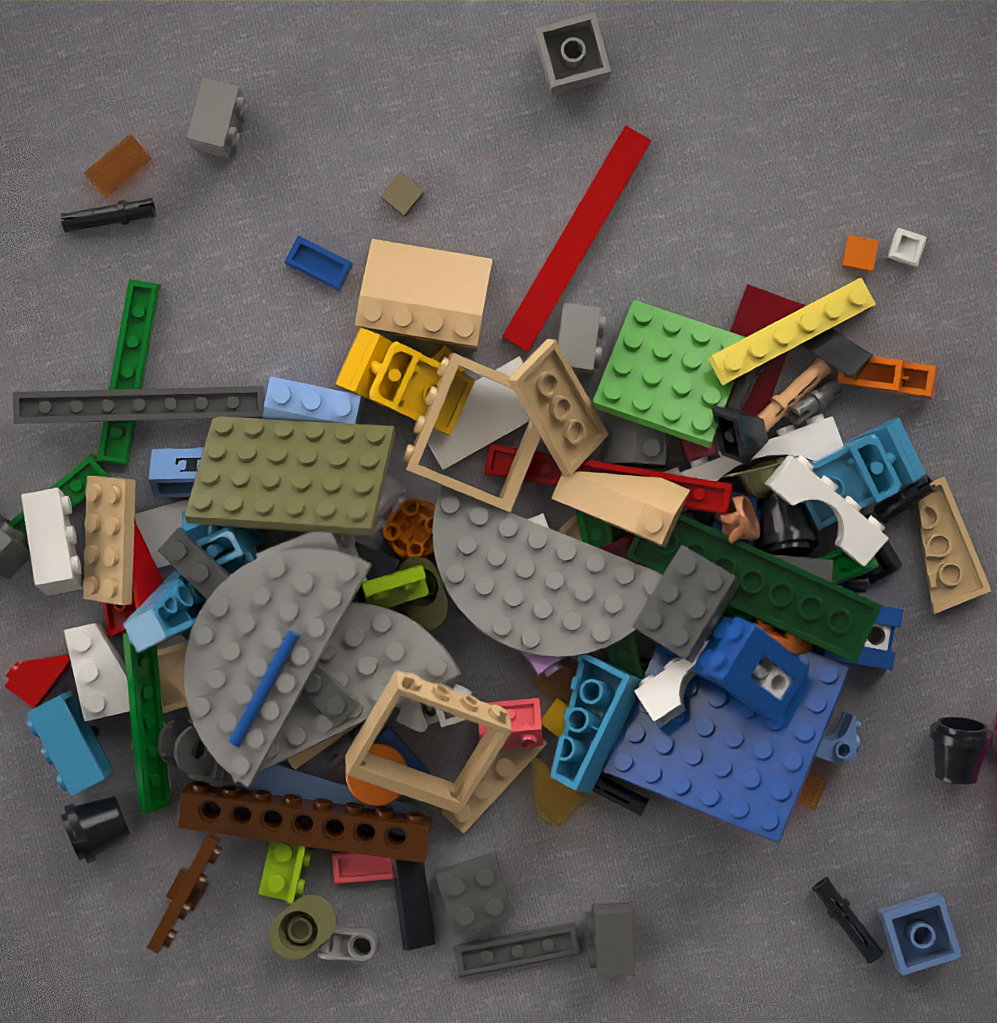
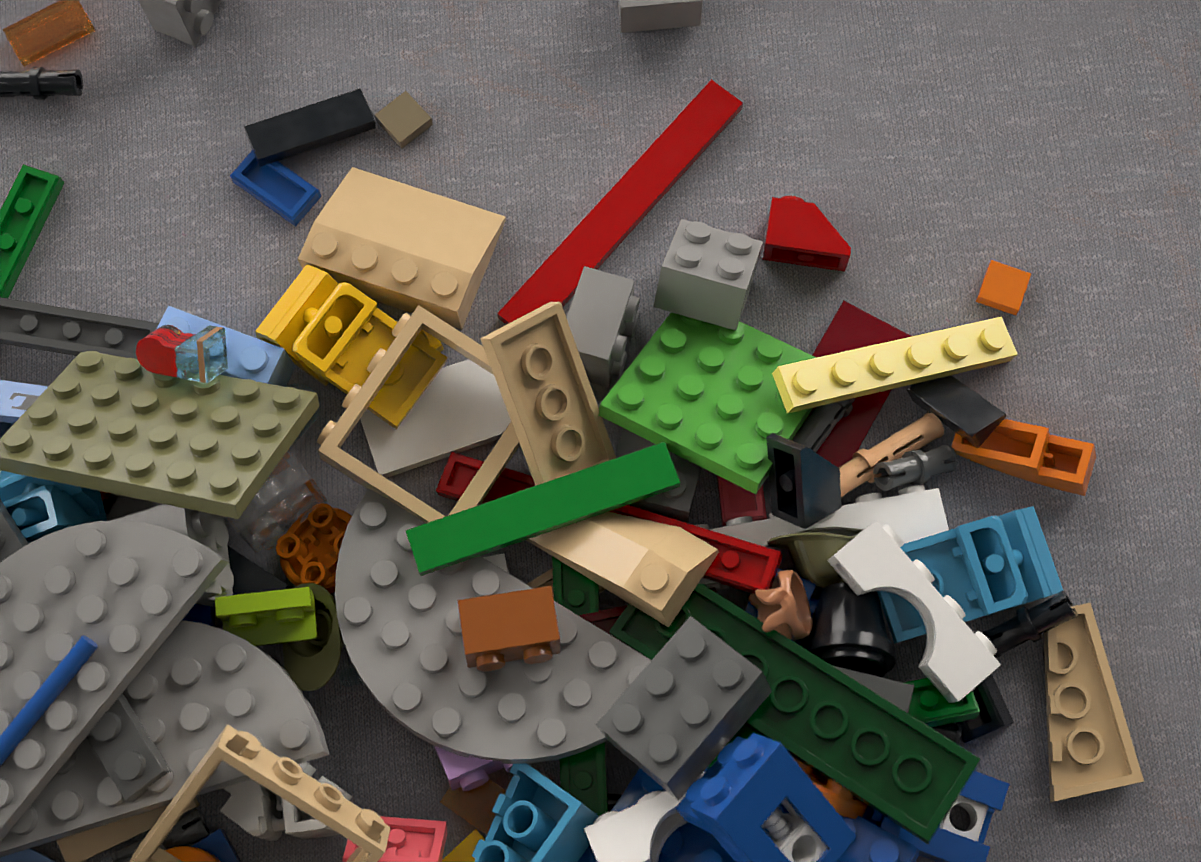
camera: 15 degrees right, 15 degrees down
(294, 414) = (184, 355): none -> leg
(335, 214) = (310, 127): none -> black tile
(562, 570) = (509, 628): none -> dark orange brick
(567, 482) = (542, 508): none -> green tile
(649, 285) = (707, 274): none -> light grey brick
(710, 239) = (803, 236): none -> red slope
(907, 247) = (1068, 290): white tile -> none

